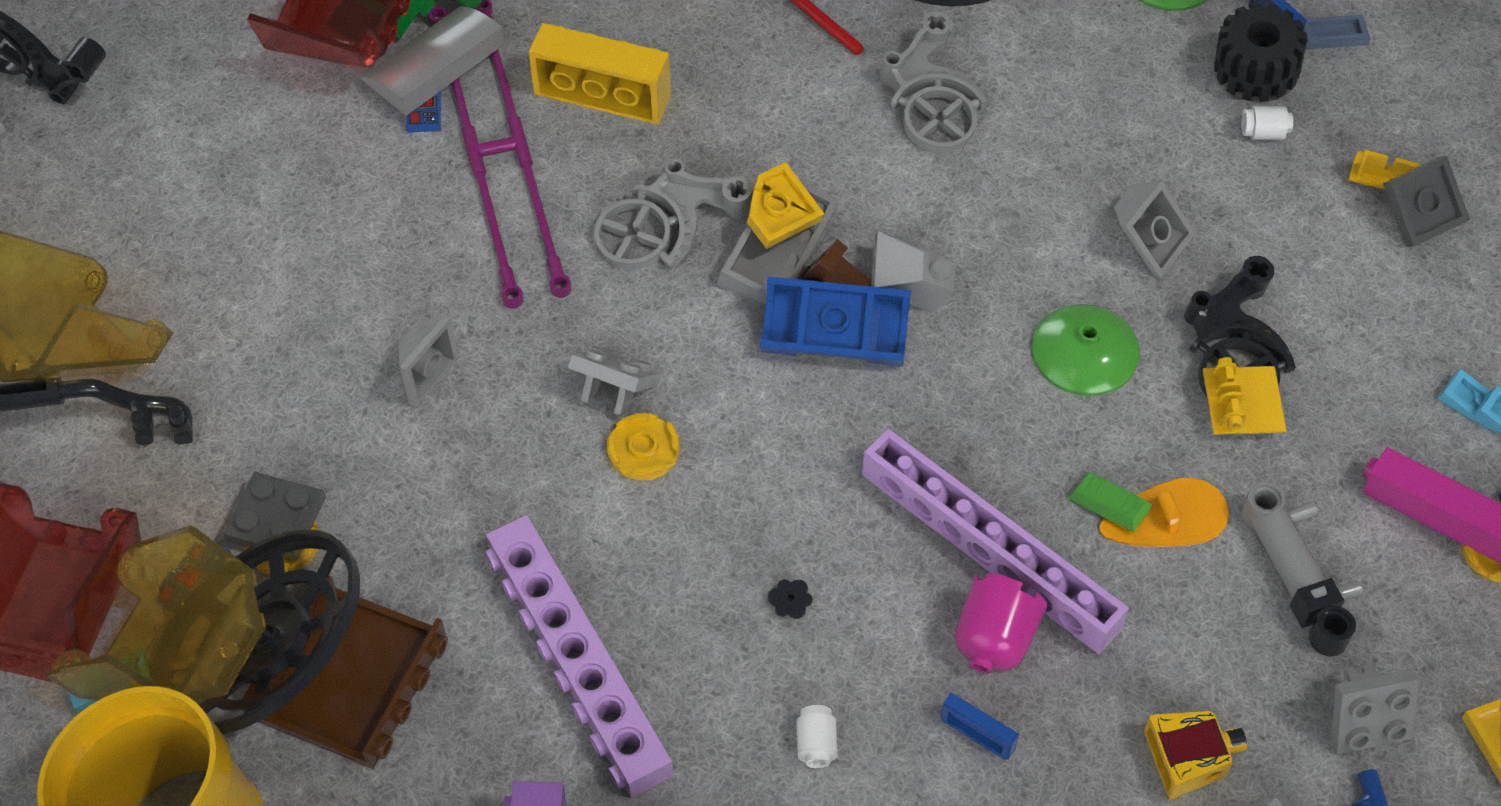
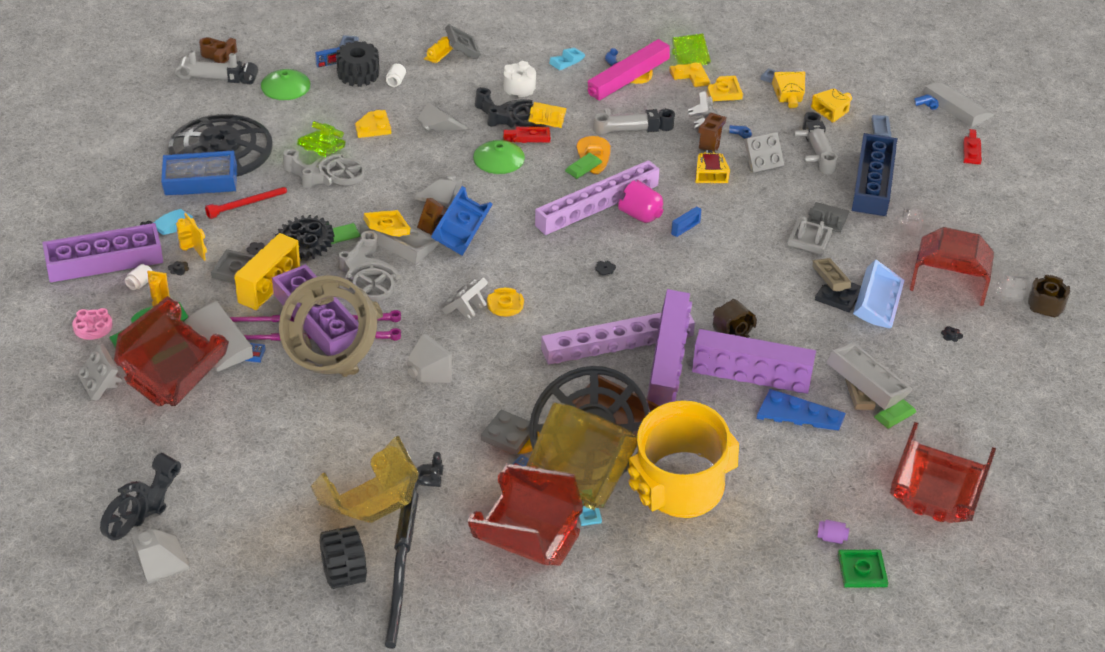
camera: 80 degrees left, 15 degrees down
(418, 153) = (322, 291): none -> dark tan piece
(506, 165) = (328, 324): none -> medium lavender brick
(508, 737) = (669, 348): none -> medium lavender brick
(627, 25) = (229, 264): none -> dark grey plate
(684, 53) = (255, 248): none -> black plant
(697, 107) = (312, 235): none -> black gear
(757, 152) = (345, 233): none -> bright green tile
(816, 736) = (680, 268): white brick -> none
(1000, 61) = (322, 141): none -> clear neon green plate
(1102, 128) = (373, 124): none -> yellow plate
(1170, 383) = (527, 134): none -> red hinge
(1296, 721) = (711, 132): none -> reddish brown tile
(1345, 326) = (519, 79): none -> white brick

